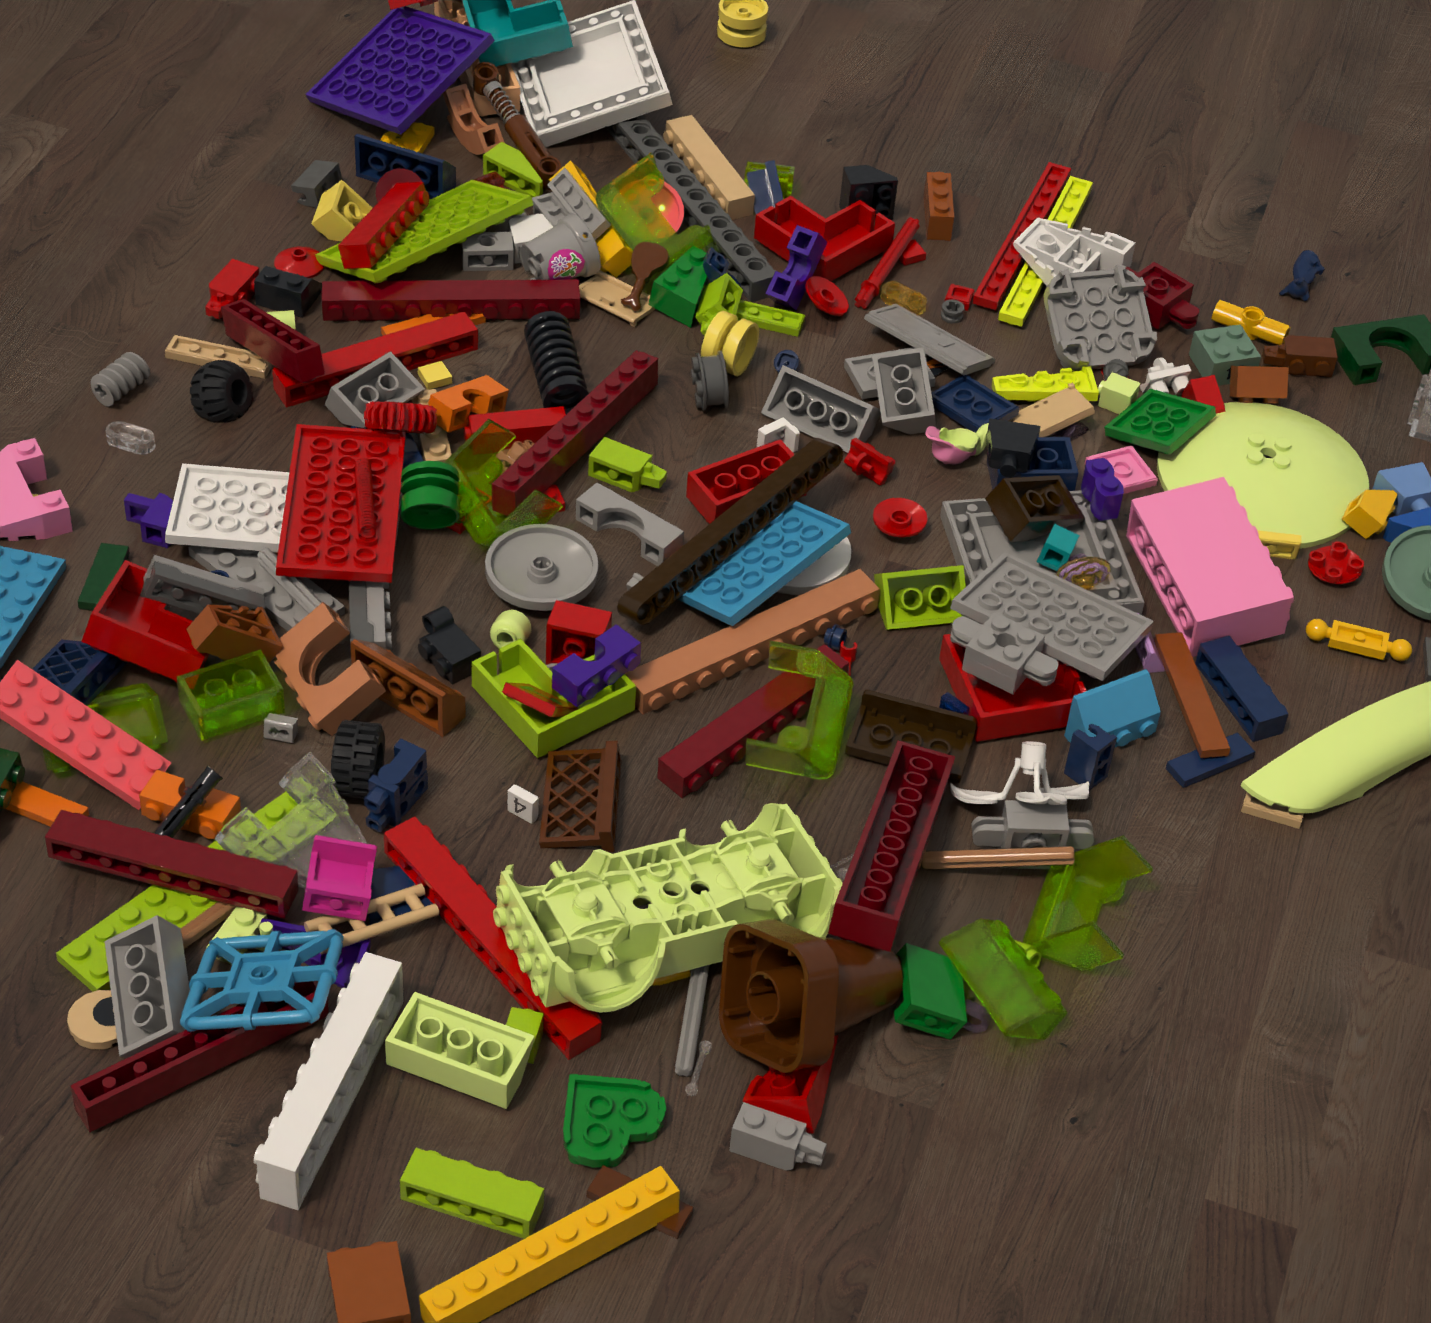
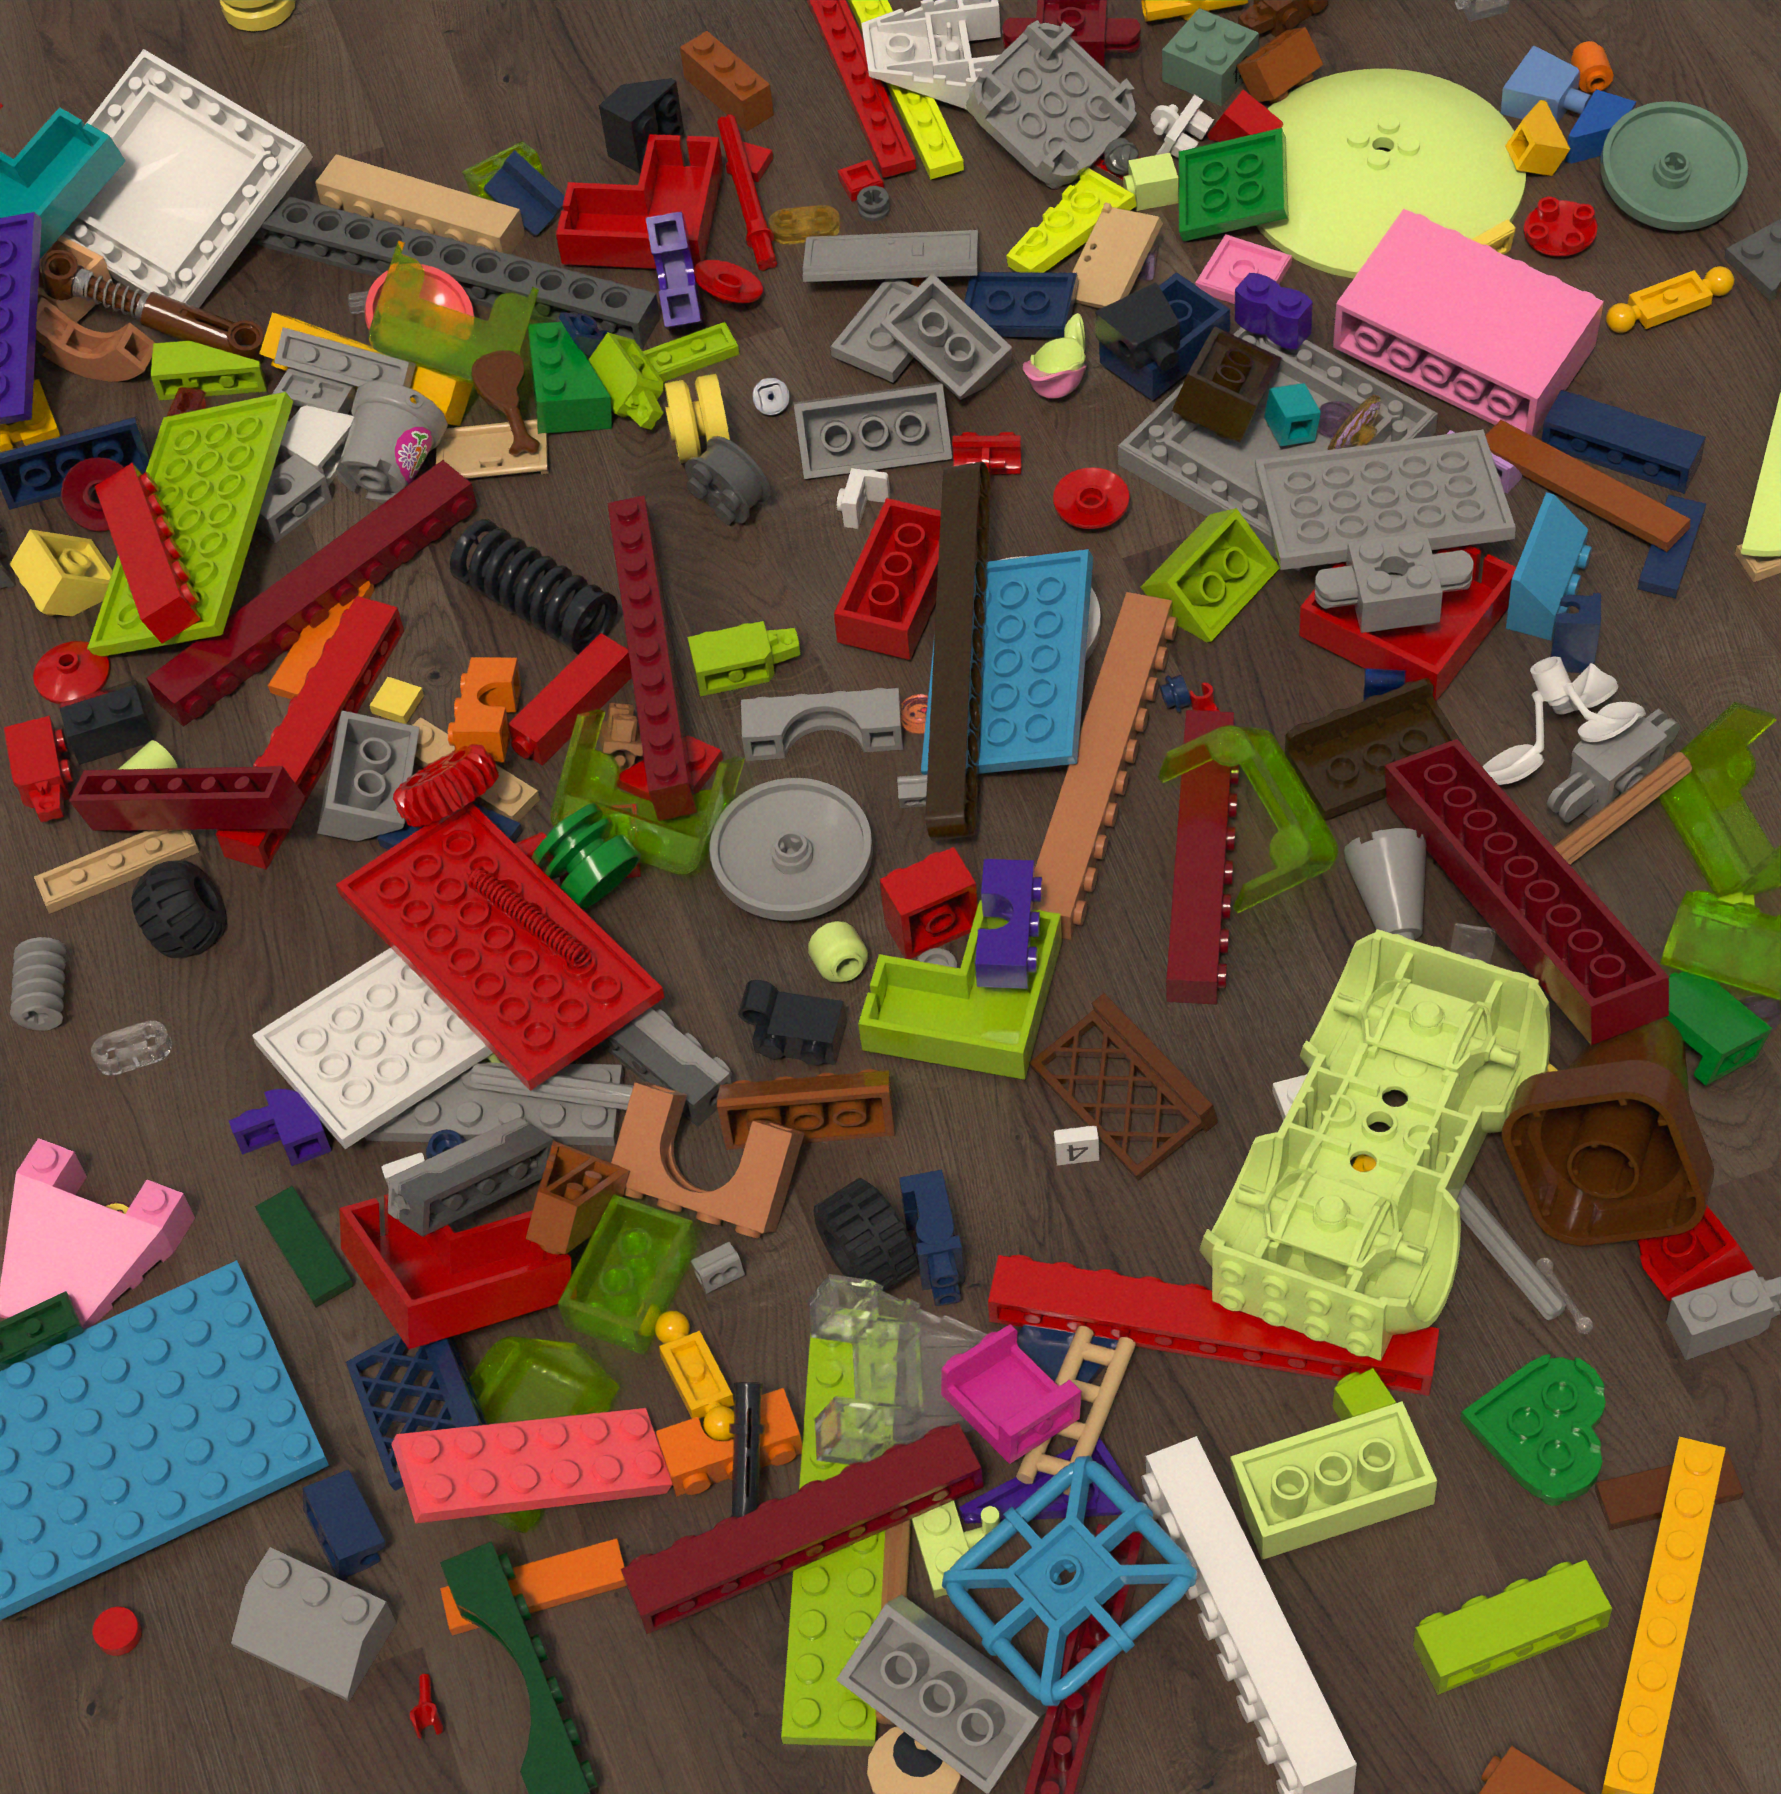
camera: 30 degrees left, 10 degrees up
(216, 754) = (695, 1374): none -> yellow plate
(538, 699) = (976, 1011): red tile -> none
(839, 801) = (1391, 879): none -> light grey cone

